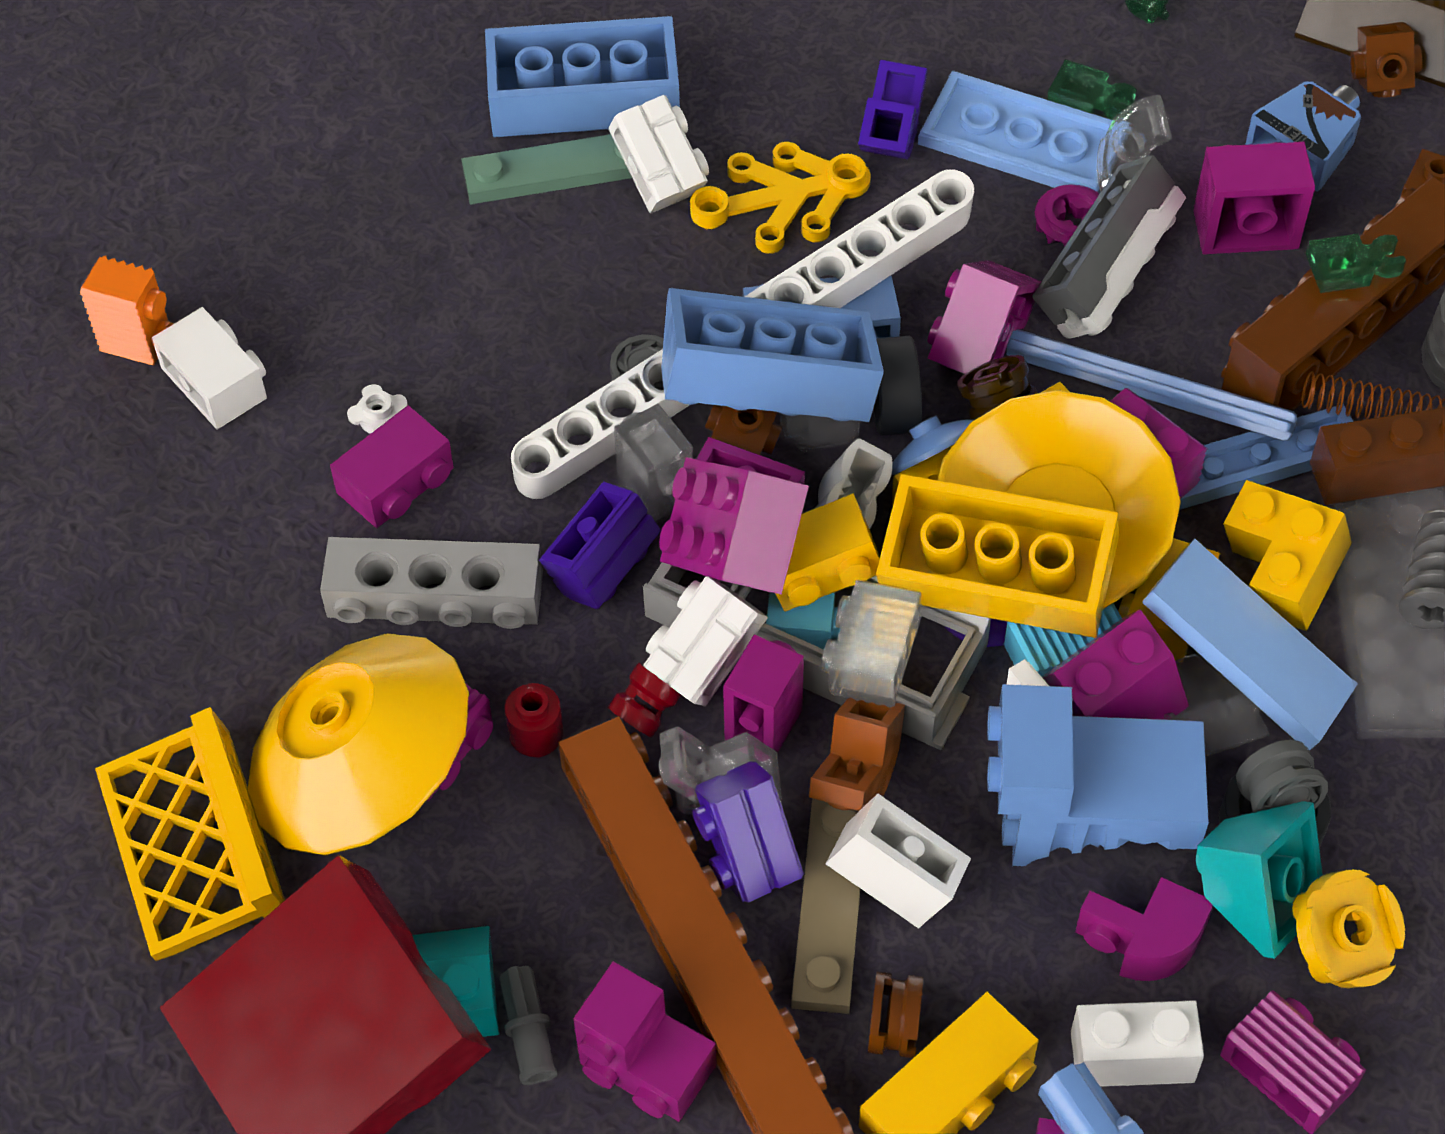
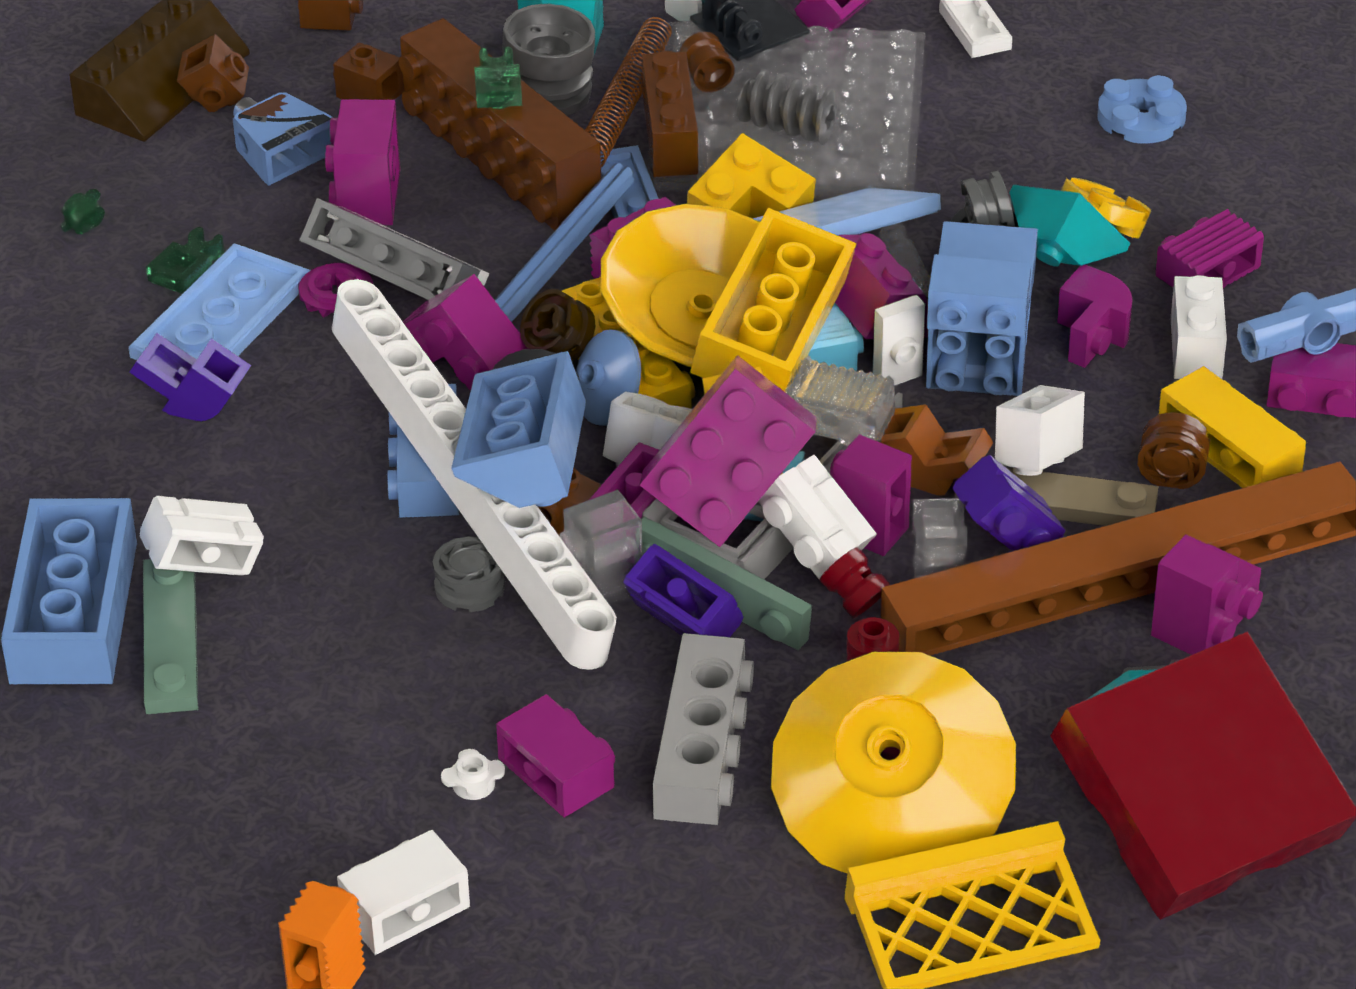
camera: 85 degrees left, 15 degrees down
(598, 636) = (761, 603): none -> sand green plate
(785, 191) = (247, 430): yellow plant -> none
(1132, 136) = (263, 239): clear tile -> none

